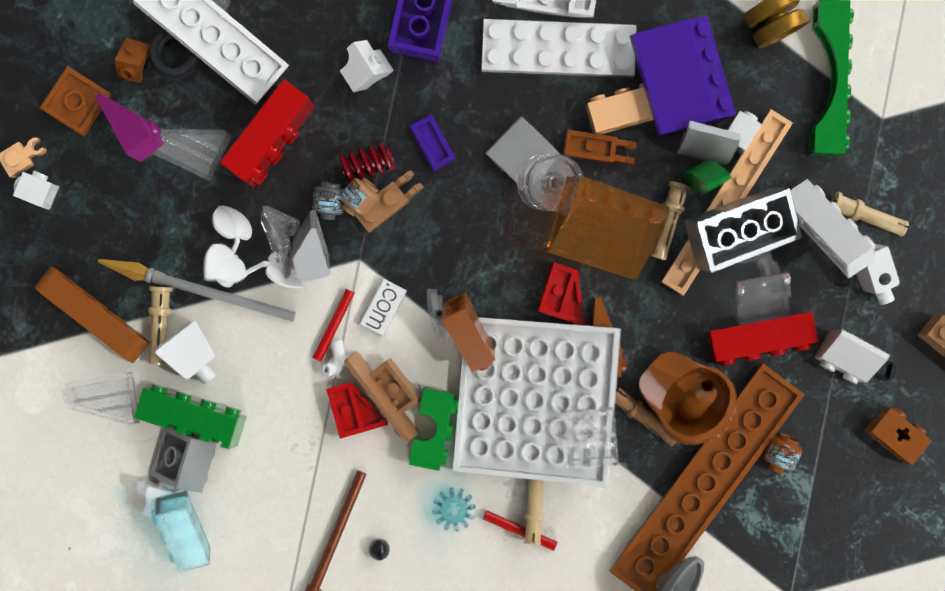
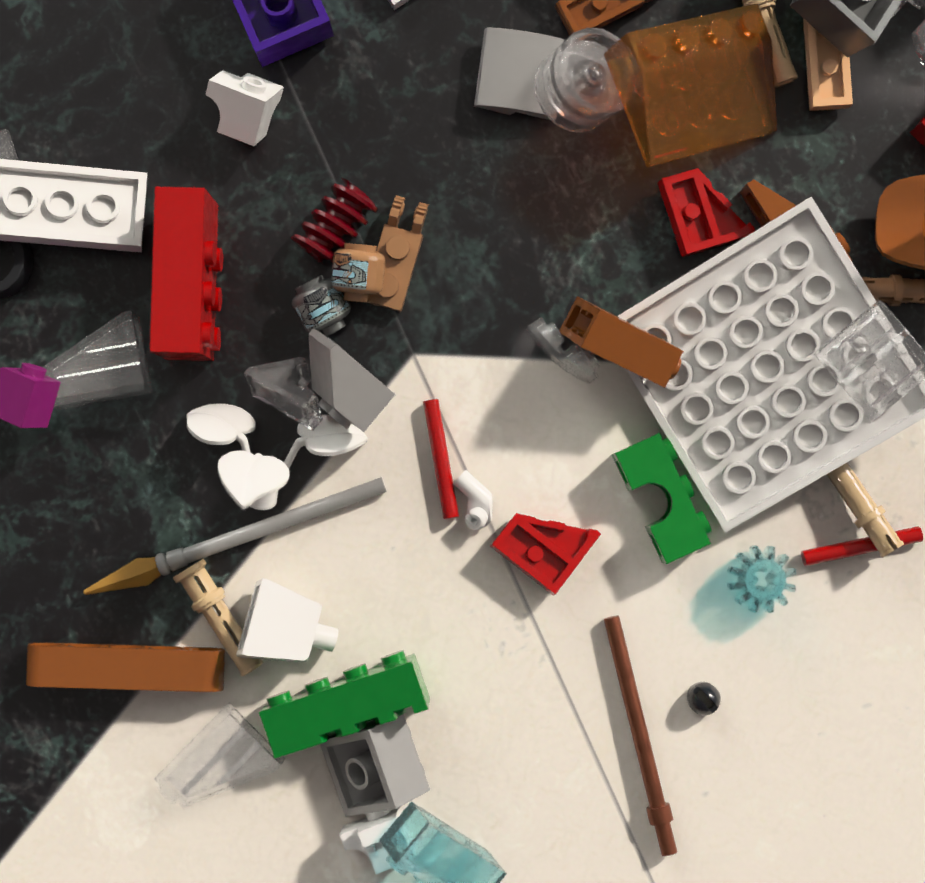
camera: 35 degrees left, 0 degrees up
(383, 307) = (487, 391): white tile -> none
(389, 391) = (571, 489): medium nougat bracket -> none
(432, 142) = (398, 141): dark purple tile -> none

